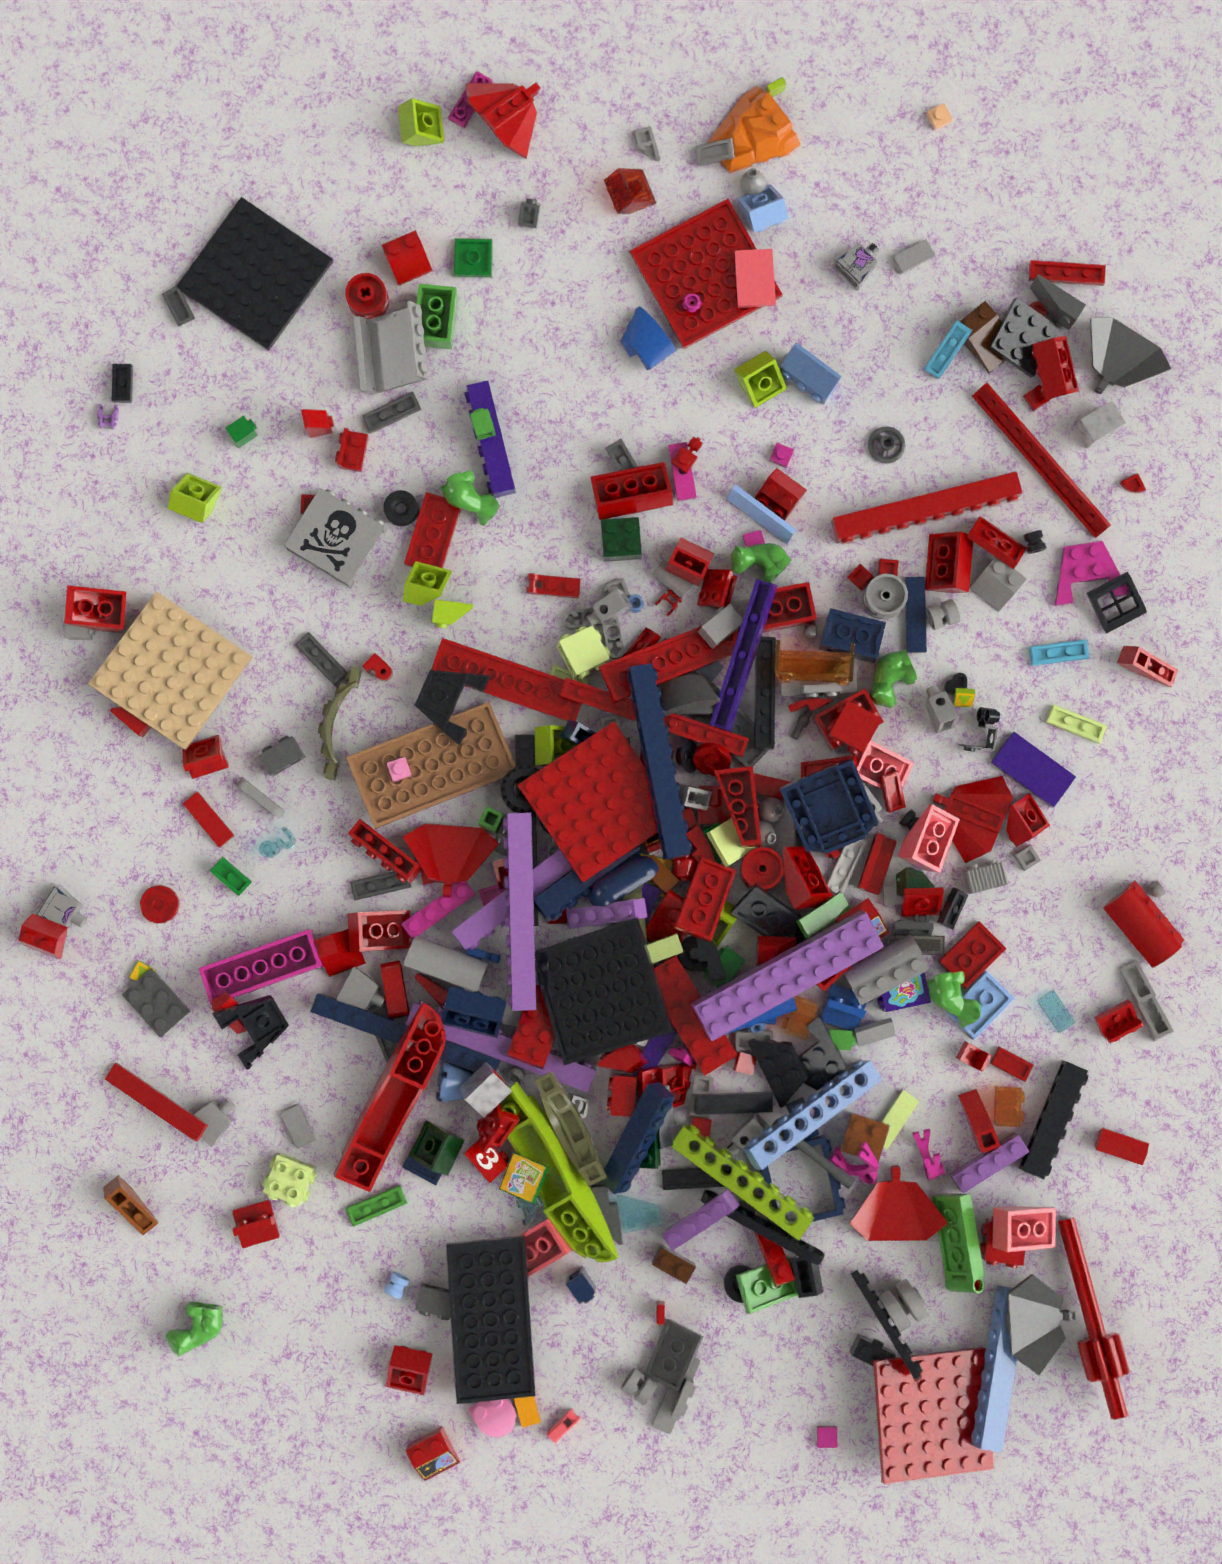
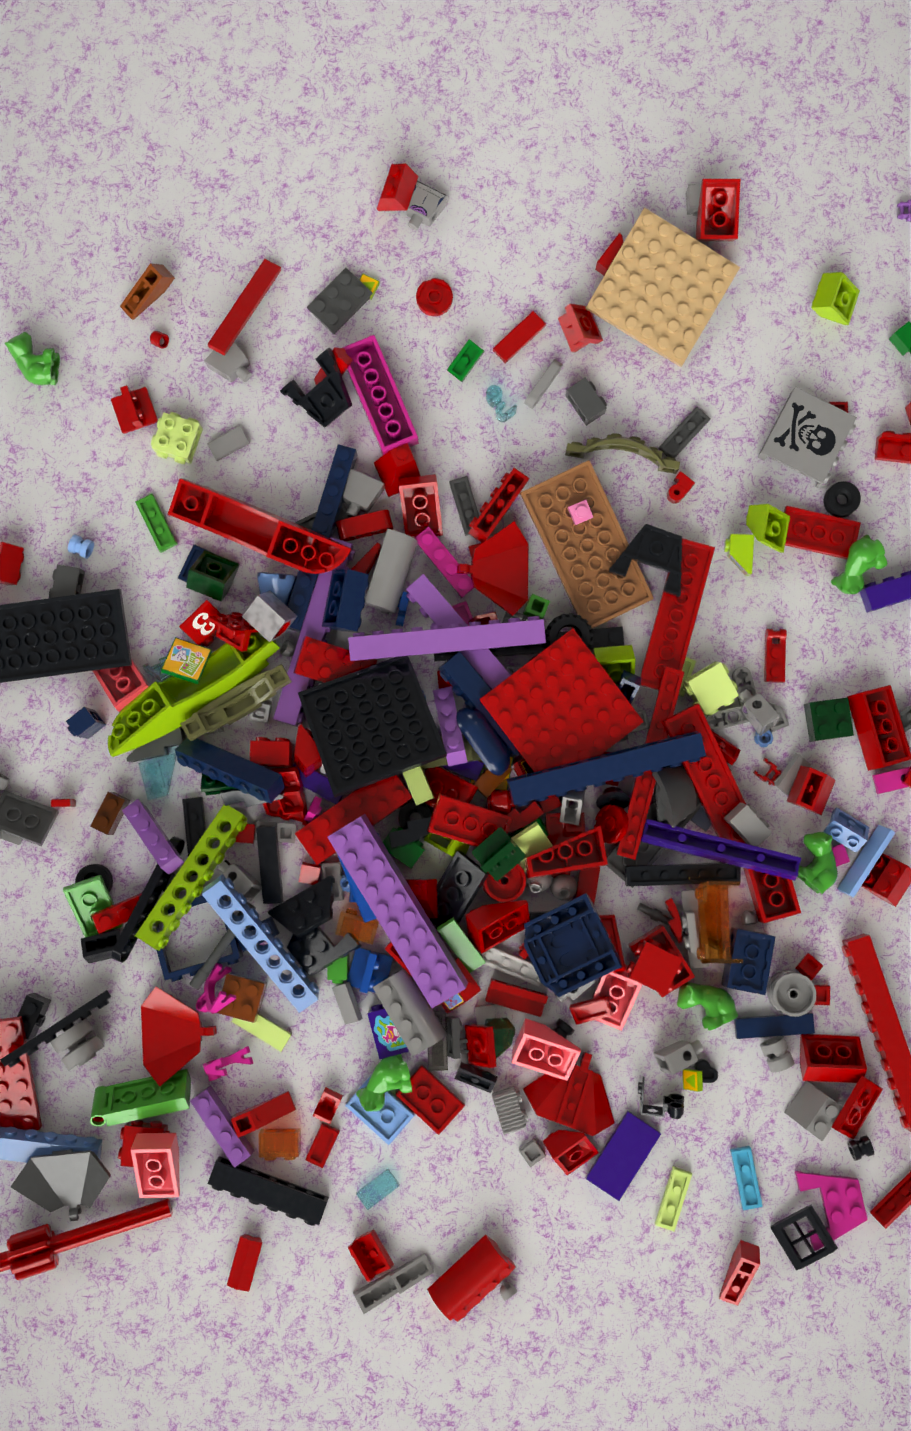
camera: 90 degrees right, 0 degrees up
(181, 1198) = (155, 339): none -> red piece
(717, 588) = (786, 820): red bracket -> none
(730, 530) = (847, 830): none -> medium blue bracket
(737, 872) = (498, 854): none -> dark green bracket

